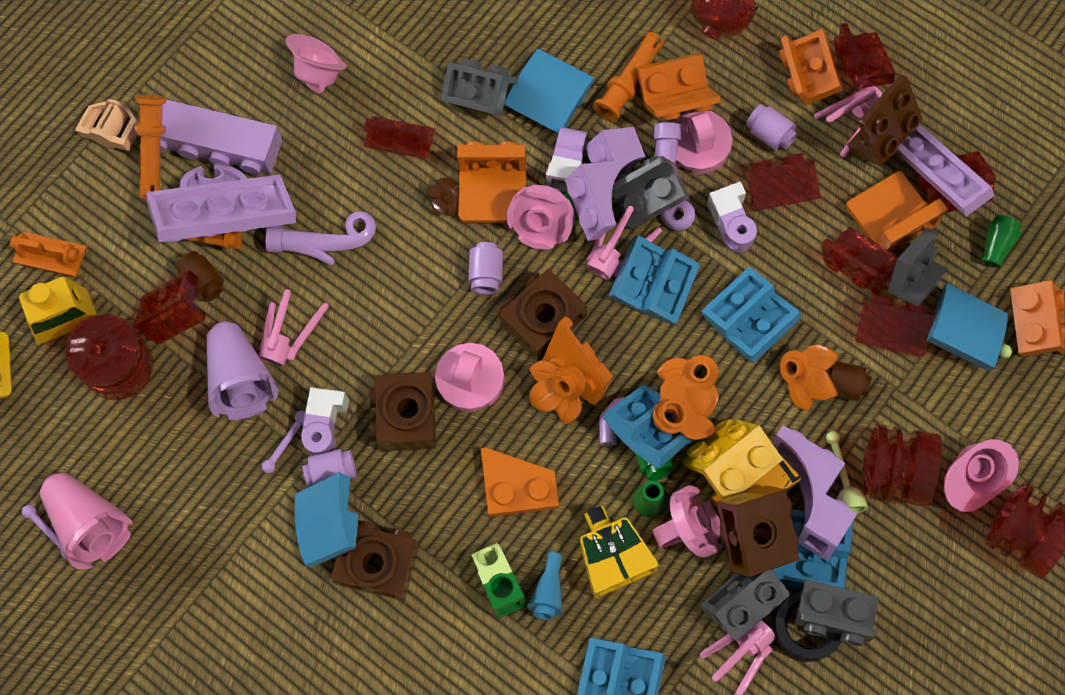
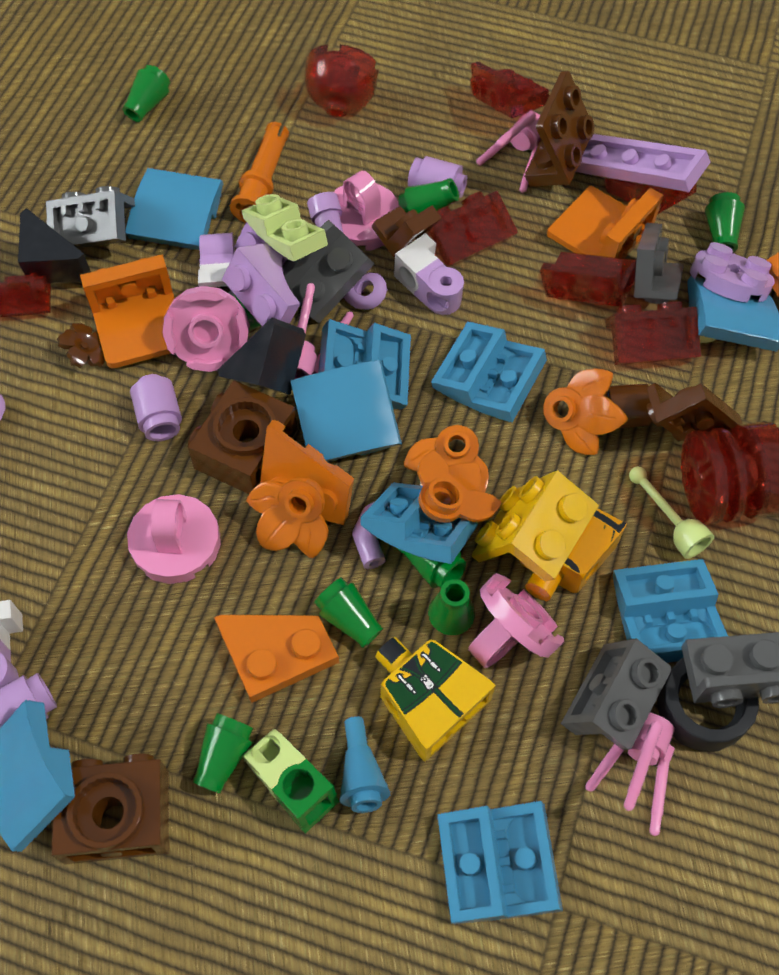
camera: 25 degrees left, 10 degrees down
(389, 398) = (78, 587): reddish brown brick -> none
(437, 111) = (48, 252): none -> black slope
(458, 546) = (221, 751): none -> green cone
(576, 475) = (347, 610): none -> green cone
(578, 261) = (268, 357): none -> black slope
(624, 153) = (282, 228): none -> yellowish green slope
(625, 319) = (346, 410): none -> dark azure slope
(676, 87) = (315, 163): orange bracket -> none
(722, 170) = (401, 228): none -> reddish brown bracket
(753, 147) = (425, 195): none -> green cone
(775, 536) = (604, 598): reddish brown brick -> none
(811, 67) = (458, 113): orange bracket -> none
(824, 517) = (674, 561): lavender arch -> none
(887, 407) = (689, 410): none -> reddish brown bracket
(978, 277) = (733, 274): none -> lavender plate

